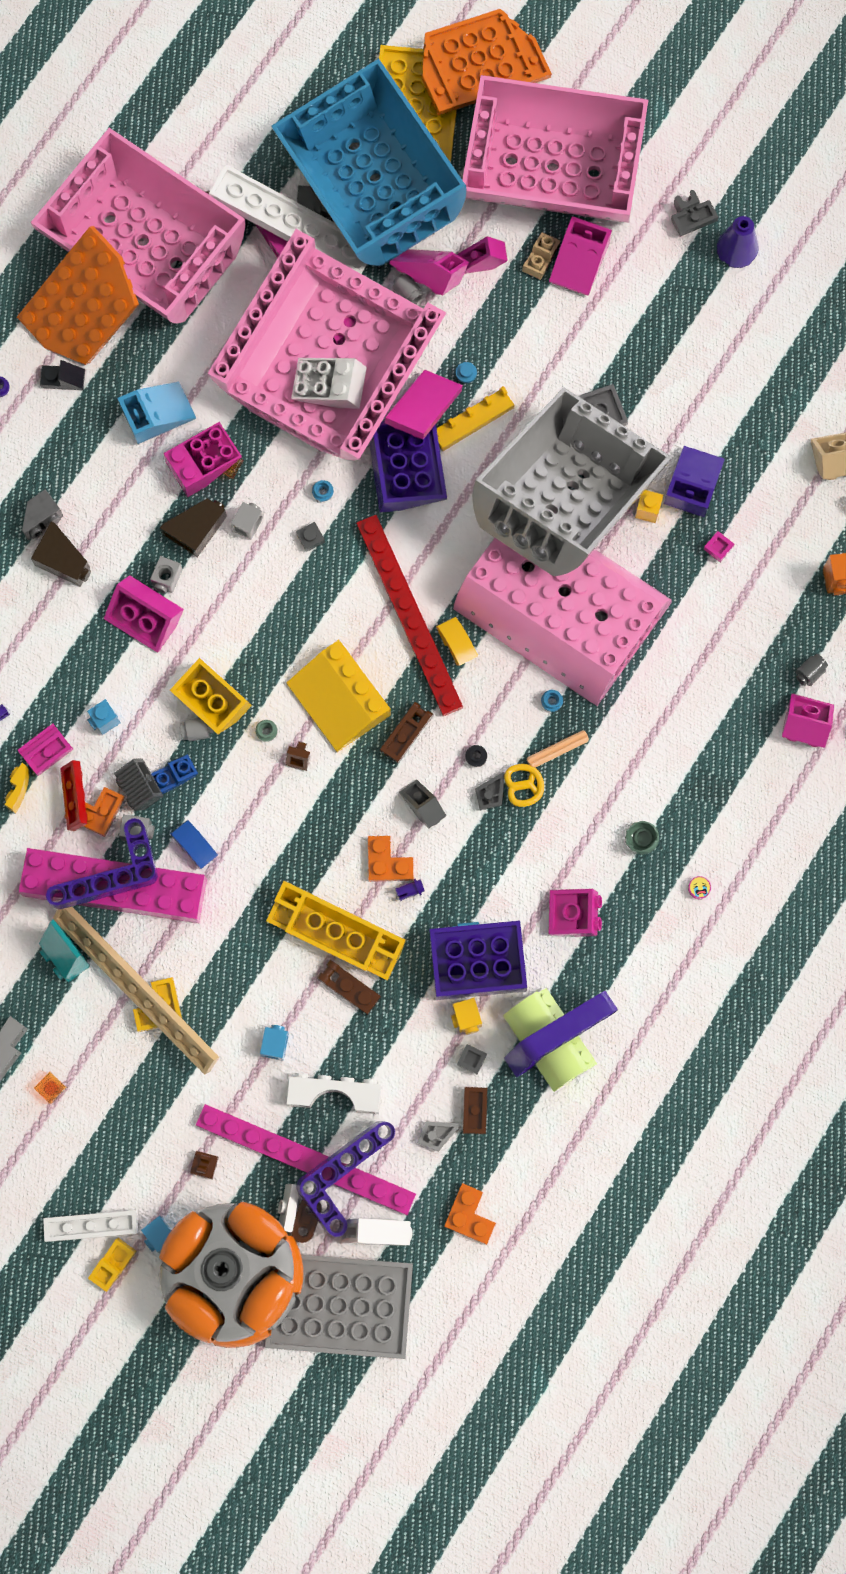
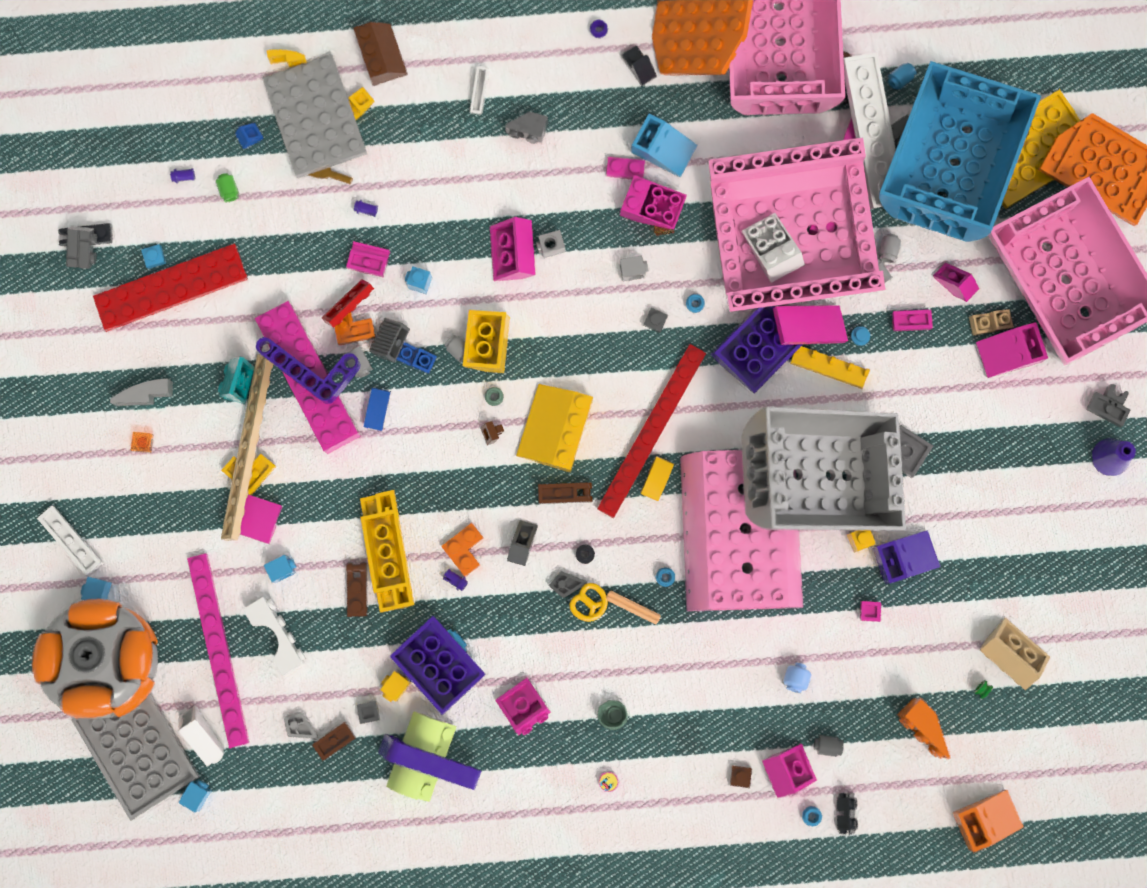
camera: 55 degrees right, 5 degrees up
(19, 780) = (333, 260): yellow slope -> none
(60, 557) = (510, 164): dark brown slope -> none
(112, 1264) = (55, 574): yellow slope -> none
(147, 459) = (625, 168): none -> dark pink plate
(195, 526) = (602, 237): dark brown slope -> none
(204, 1165) = (165, 584): reddish brown tile -> none
(214, 1027) = (259, 519): none -> dark pink slope
(260, 164) = (901, 76): none -> dark azure brick
(288, 1206) = (174, 663): white plate -> none
(307, 1220) = (177, 681): reddish brown plate -> none
(338, 1172) = (203, 675): dark purple beam -> none
(428, 1278) = (195, 795): none -> dark azure brick
(434, 269) = (917, 253): dark pink slope -> none
(463, 1216) = (255, 789): orange plate -> none
(487, 319) = (912, 320): none -> dark pink plate
(730, 652) = (797, 678): none -> light blue head
(781, 767) = (740, 776): none -> reddish brown plate

